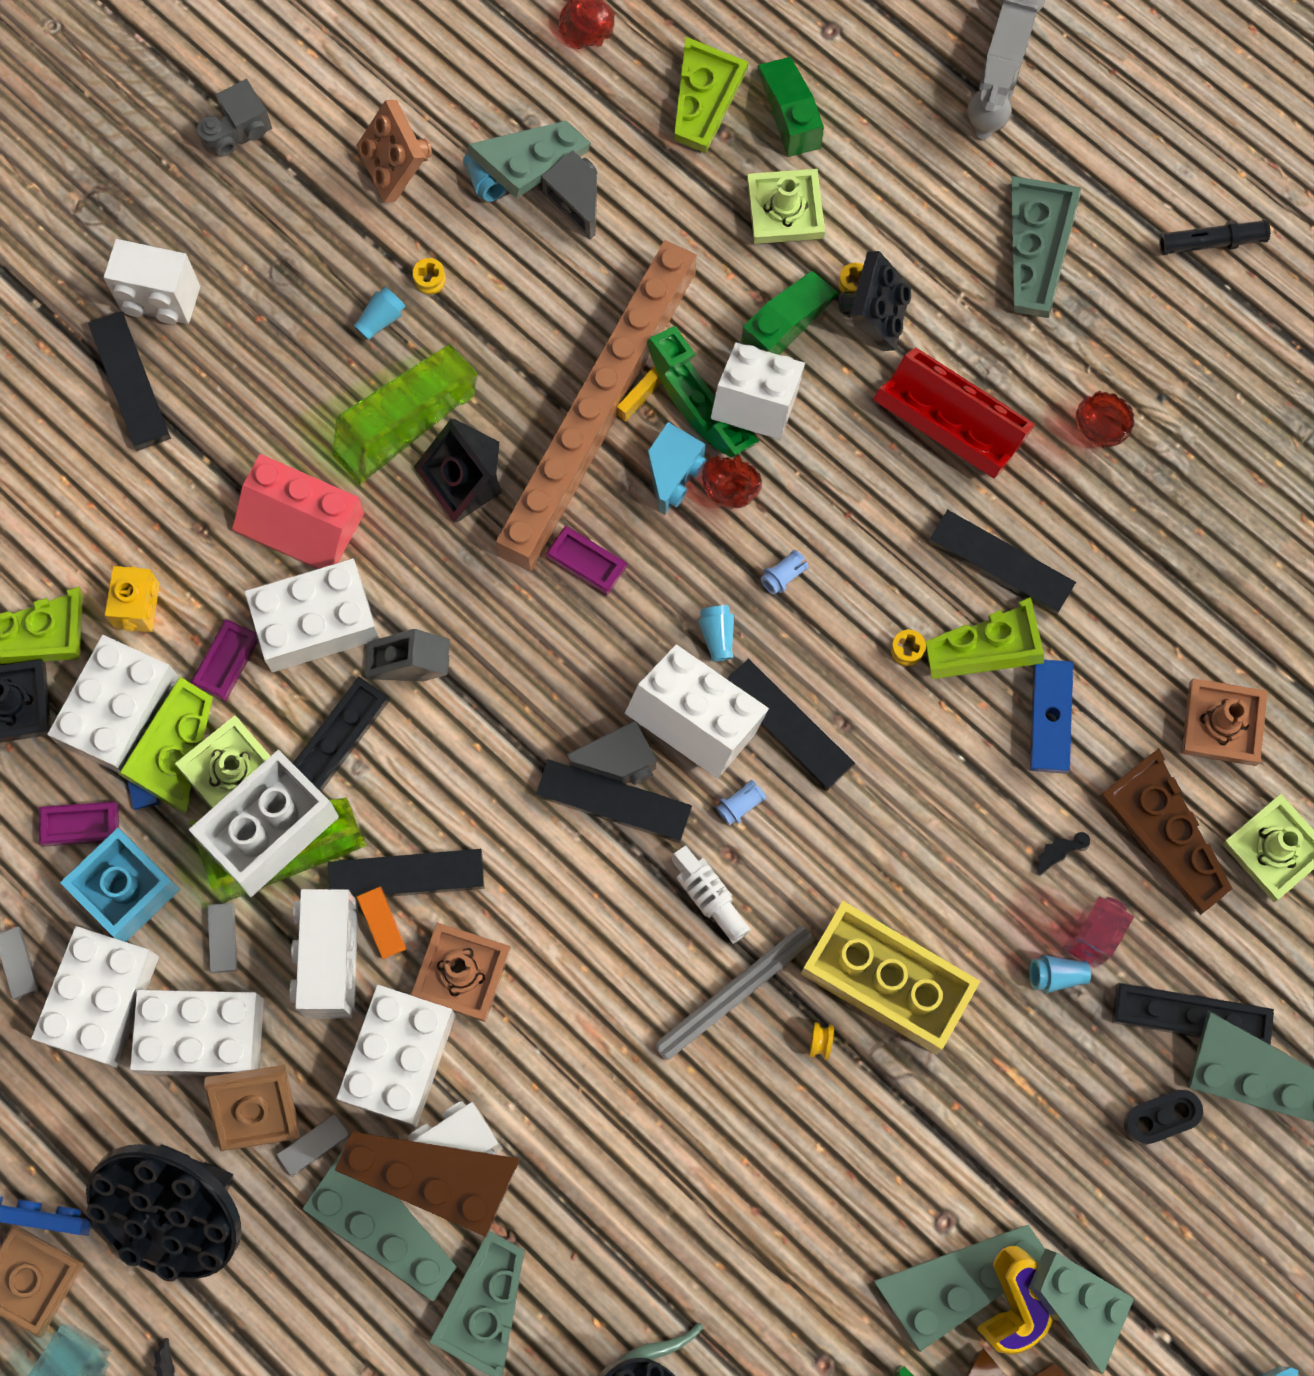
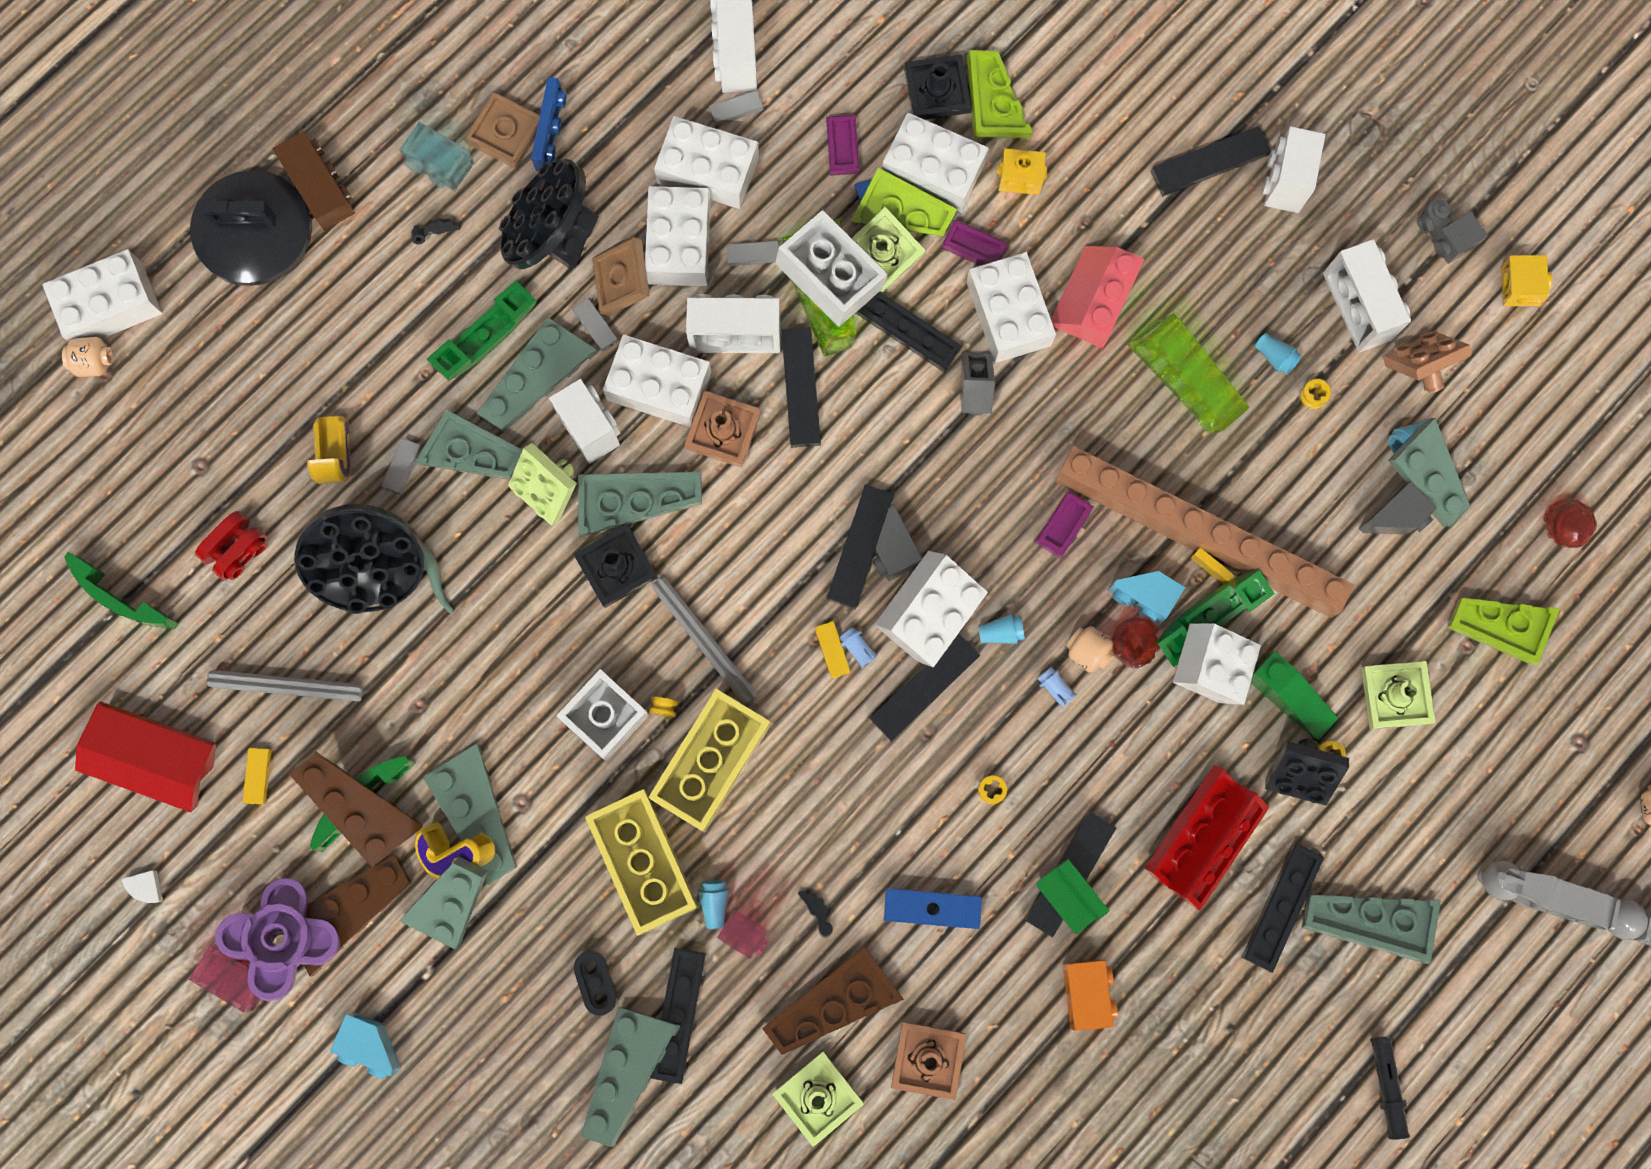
camera: 90 degrees right, 5 degrees up
(120, 886) = (790, 174): medium azure brick -> none
(300, 46) = (1525, 280): none -> yellow head
(316, 210) = (1367, 295): none -> white brick
(321, 1296) = (484, 334): none -> green slope
(381, 922) = (762, 368): orange piece -> none
(436, 1178) = (553, 405): reddish brown wing -> none
(461, 469) = (1139, 420): black slope -> none
(537, 1203) = (543, 483): none -> yellowish green plate
(551, 1091) = (626, 498): none -> sand green wing
(670, 1113) = (610, 555): none -> black plate
(709, 893) = (782, 621): white hinge -> none
(740, 531) = (1090, 649): none -> light nougat head
(743, 835) = (832, 650): none -> yellow piece
(792, 106) = (1499, 702): green slope -> none
(837, 1113) = (603, 715): none -> white brick
(995, 644) = (994, 863): lime wing -> none
(1017, 1059) = (641, 862): none -> light yellow brick
(1026, 337) = (1282, 907): none -> black tile
(1030, 558) = (1071, 896): none -> green panel
(1105, 419) = (1204, 971): clear red hair -> none
(1139, 543) = (1089, 995): none -> orange brick

